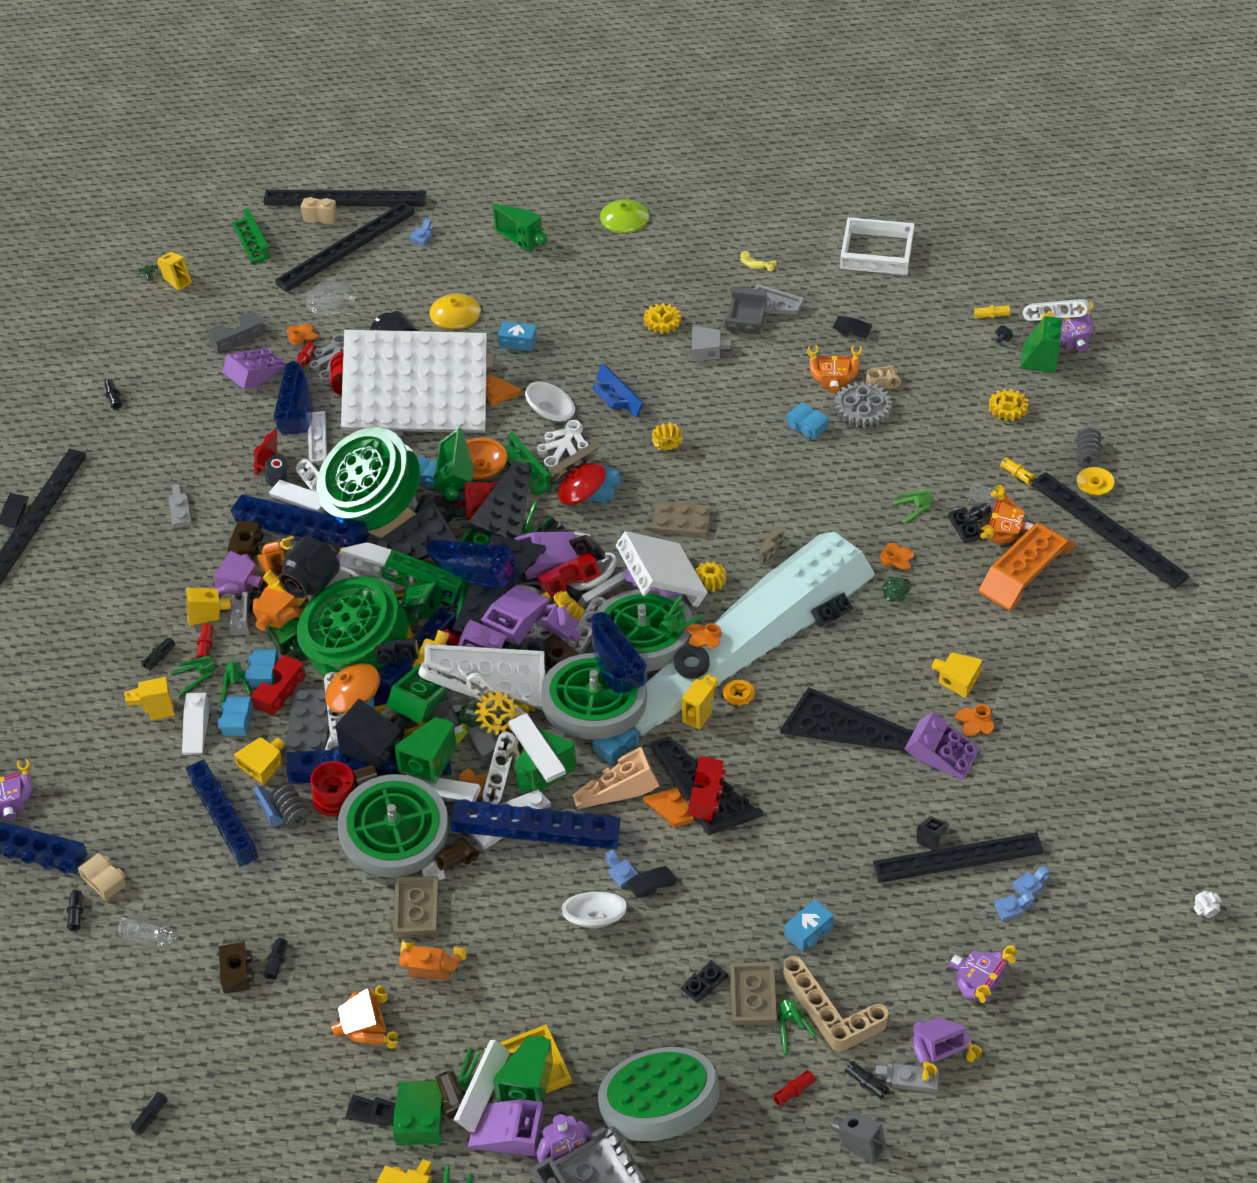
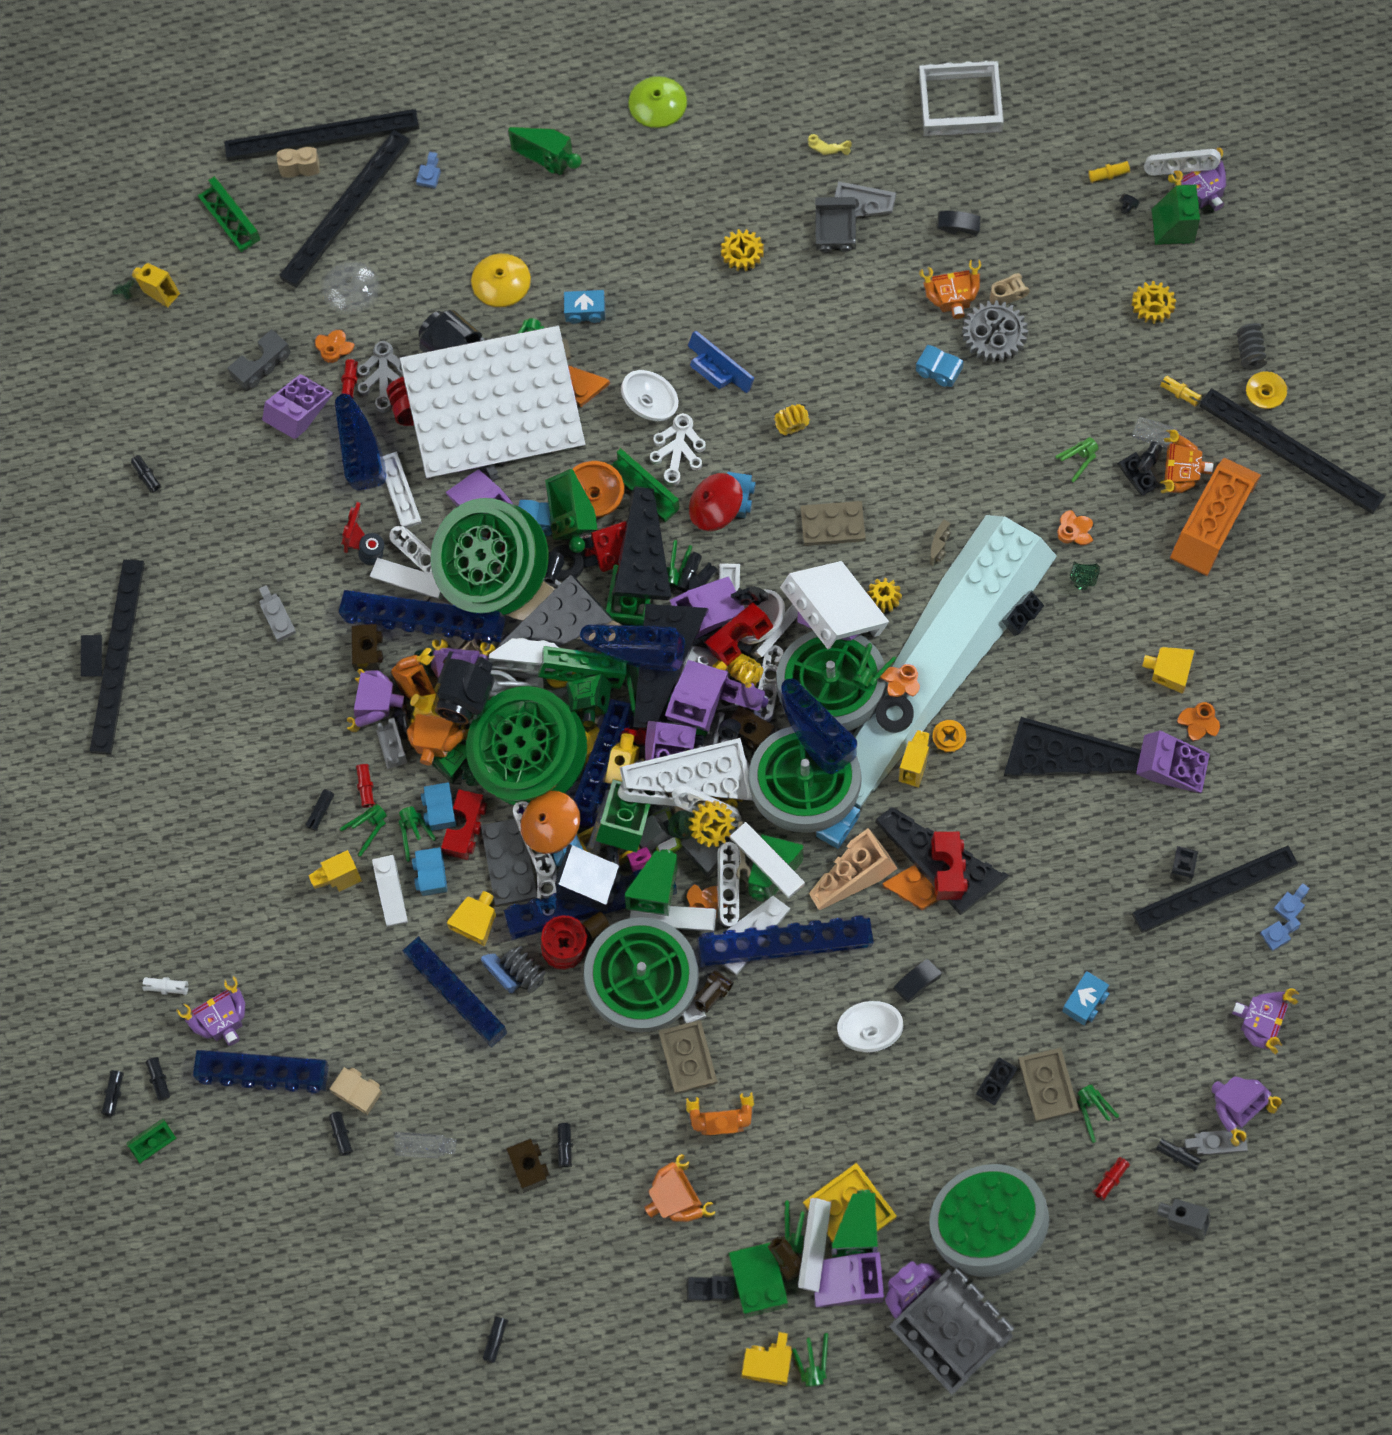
camera: 10 degrees left, 20 degrees up
(204, 605) = (351, 742): yellow torso -> none
(398, 649) = (580, 774): black slope -> none
(574, 460) = (699, 474): dark tan plate -> none
(620, 871) = (883, 973): medium blue plate -> none
(707, 344) = (802, 277): light grey torso -> none
(826, 1010) = (1124, 1088): tan beam -> none

